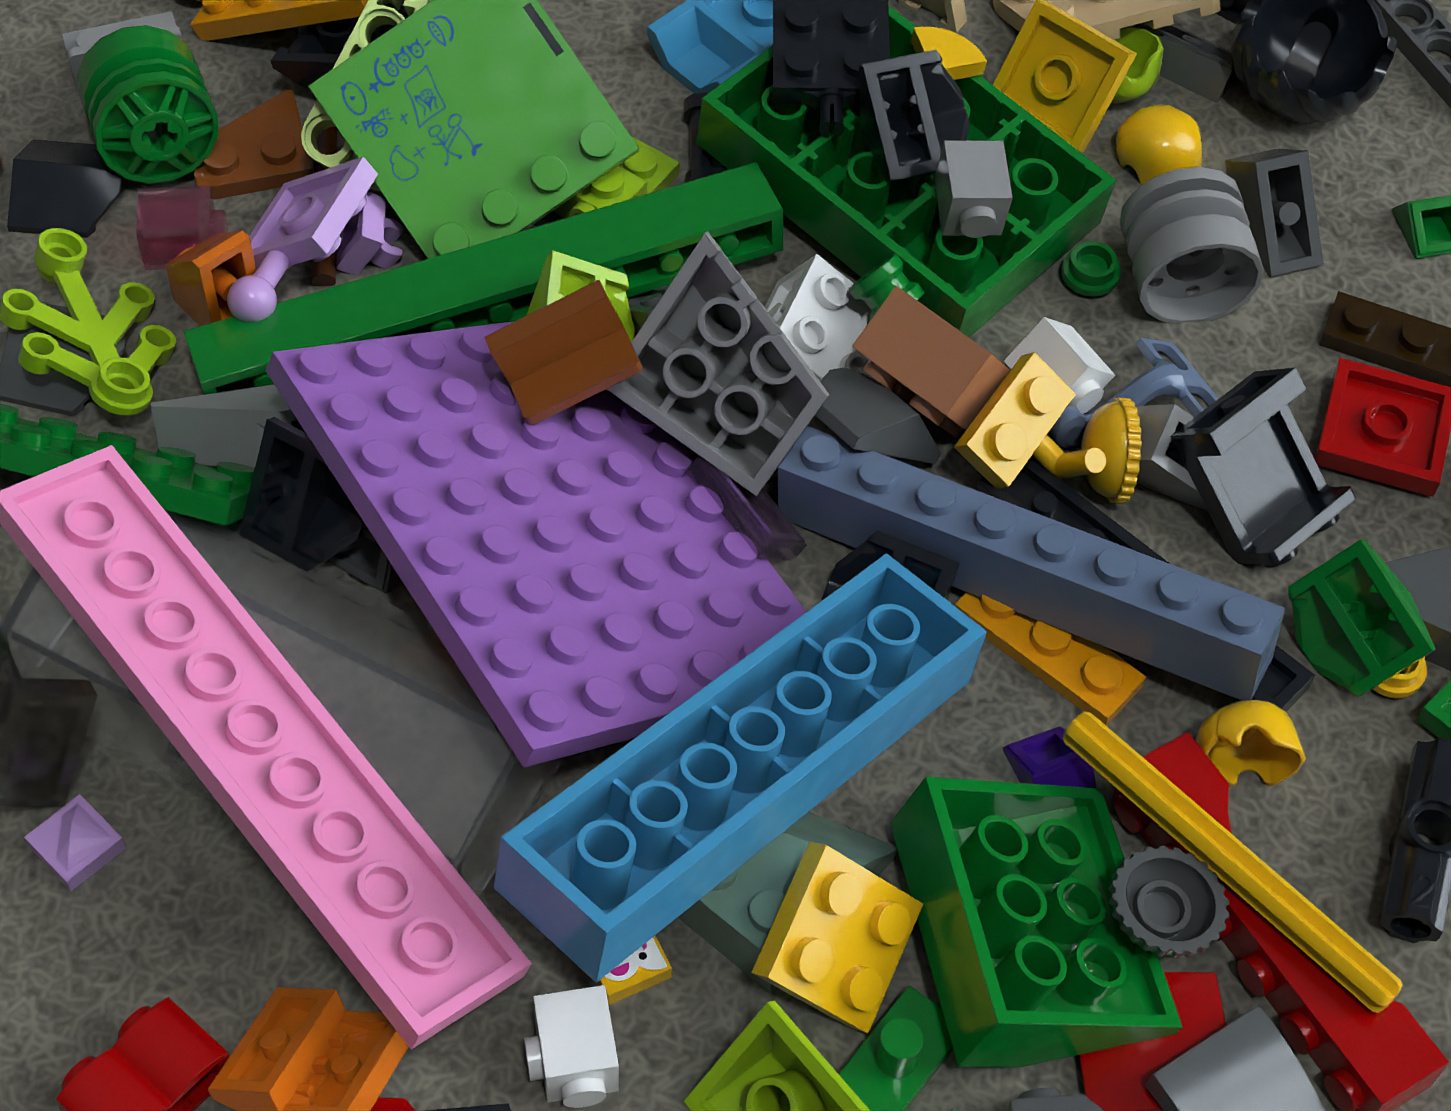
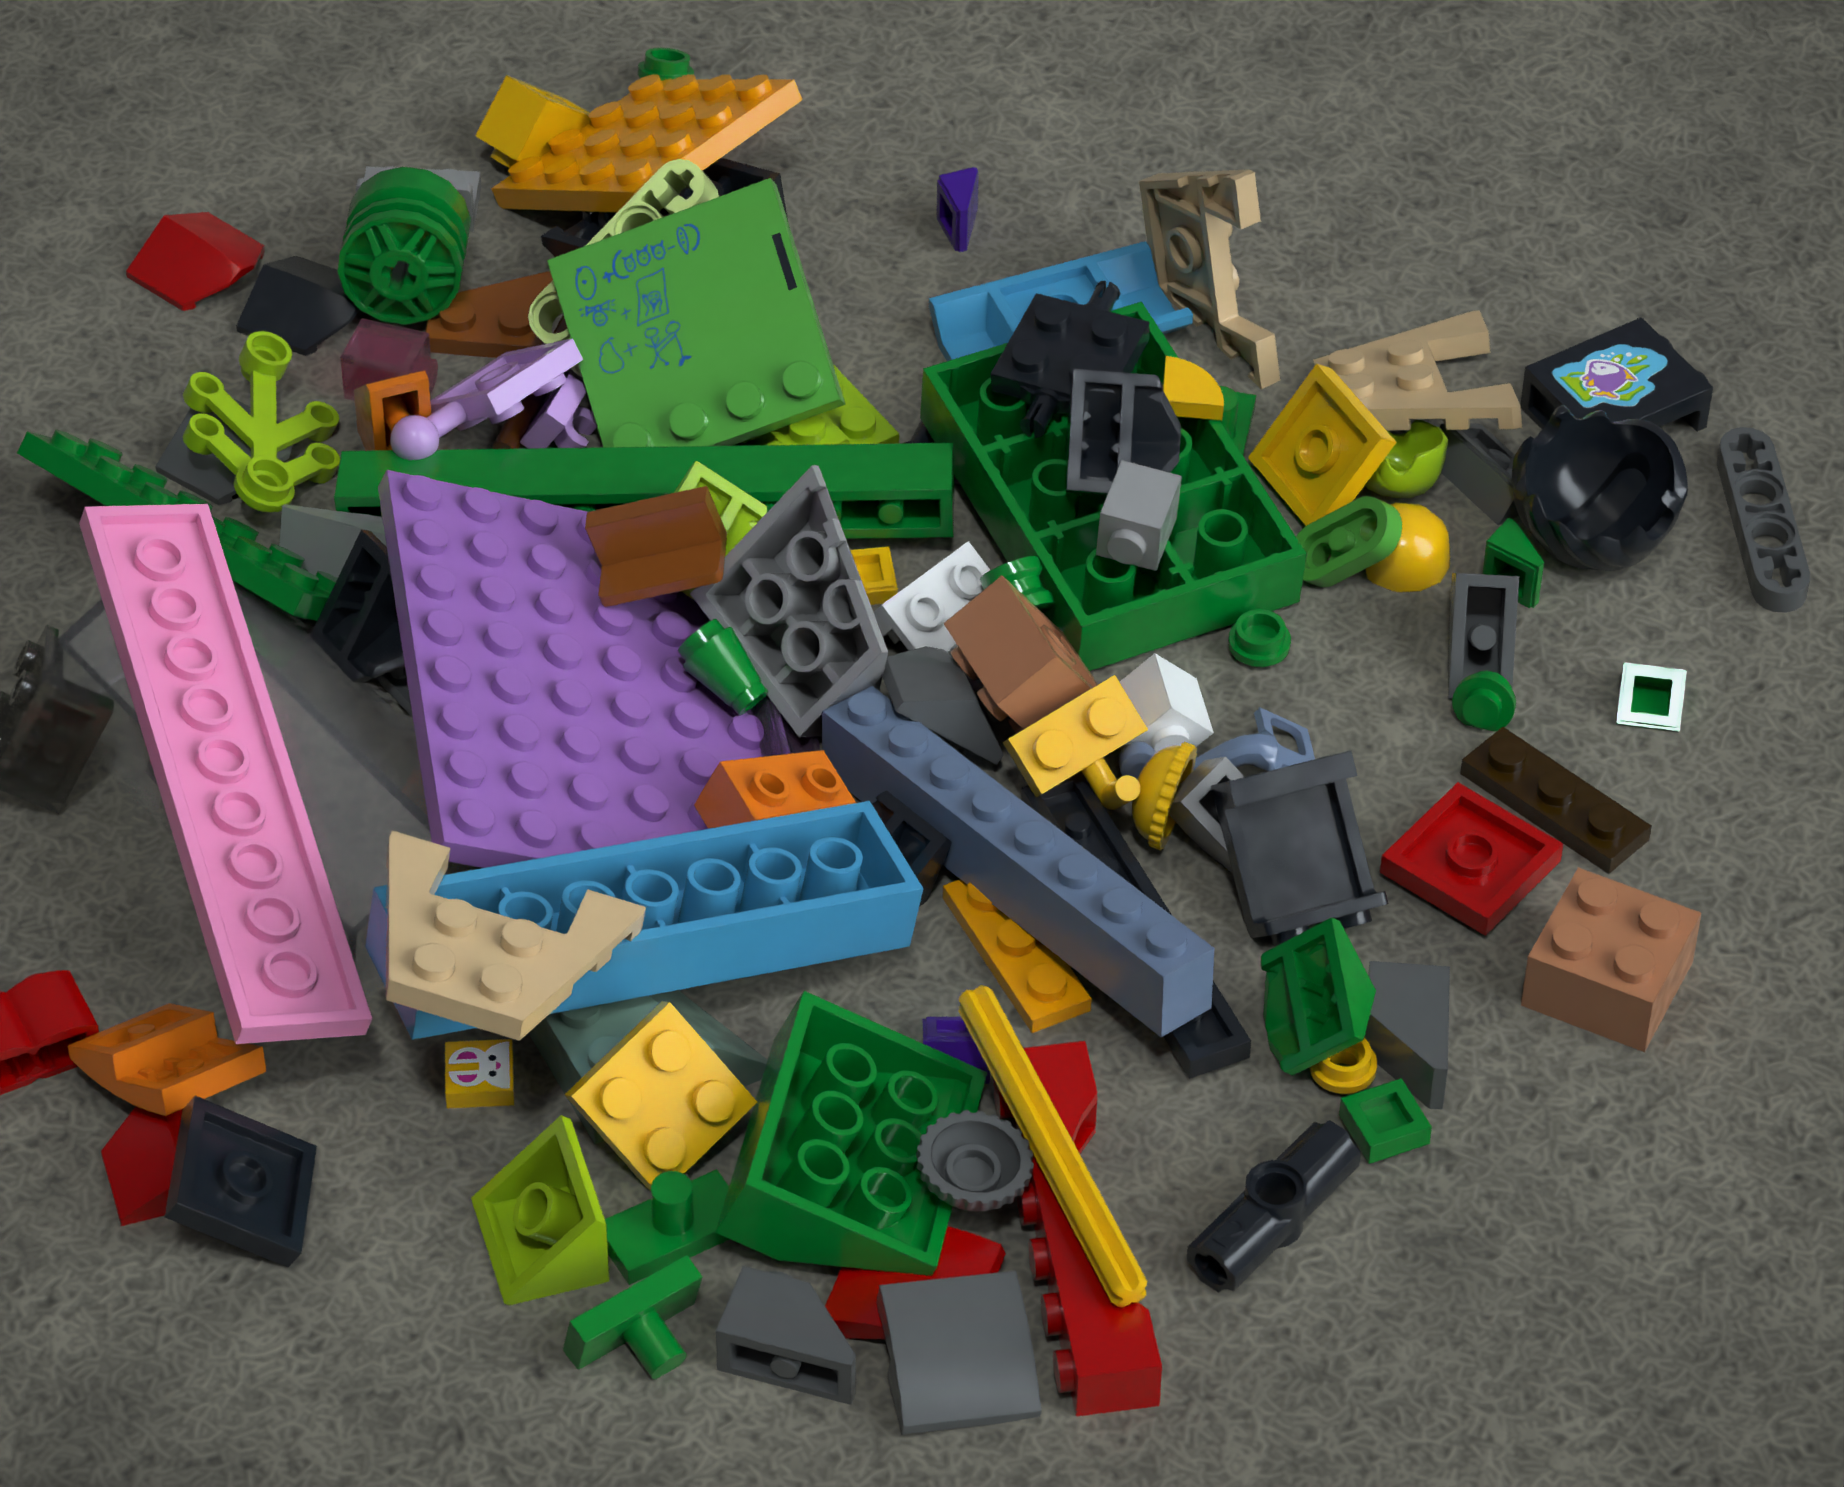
camera: 25 degrees right, 10 degrees down
(75, 842) = (54, 842): lavender tile -> none
(573, 1047) = (393, 1118): white brick -> none
(648, 892) = (480, 963): none -> tan wing
(666, 450) = (723, 666): none -> green cone
(786, 577) = (770, 788): none -> orange brick
(1127, 153) = (1355, 538): none -> bright green plate
(1191, 245) = (1355, 636): light grey wheel -> none
(1253, 739) = (1143, 1071): yellow hair -> none
(1264, 130) = (1512, 554): none -> green slope
(1312, 271) = (1484, 701): none -> green plate

